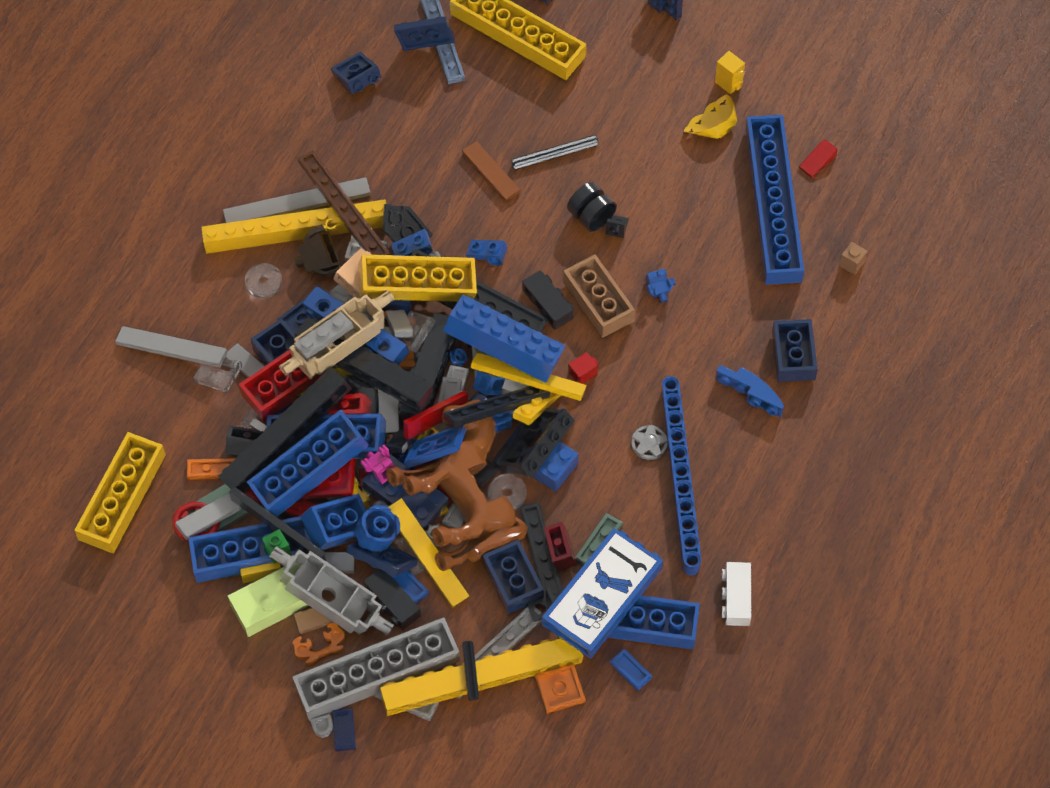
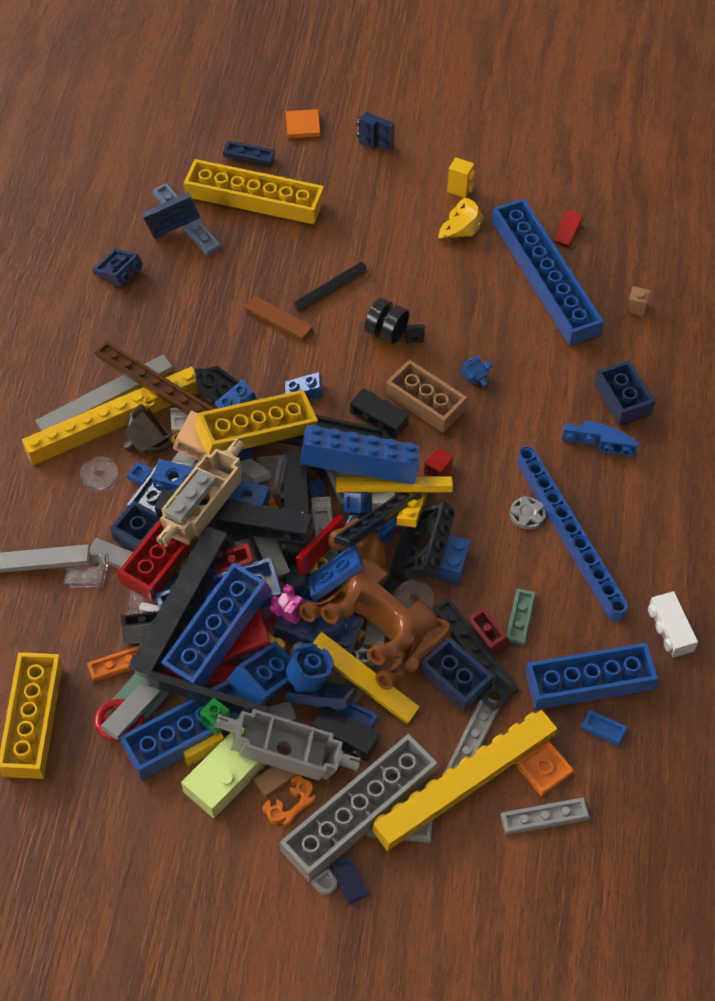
camera: 20 degrees left, 5 degrees down
(299, 291) = (139, 473): none -> blue plate
(470, 670) = (456, 777): black axle -> none
(541, 731) = (544, 816): none -> light grey tile
(602, 592) = (553, 661): brick -> none

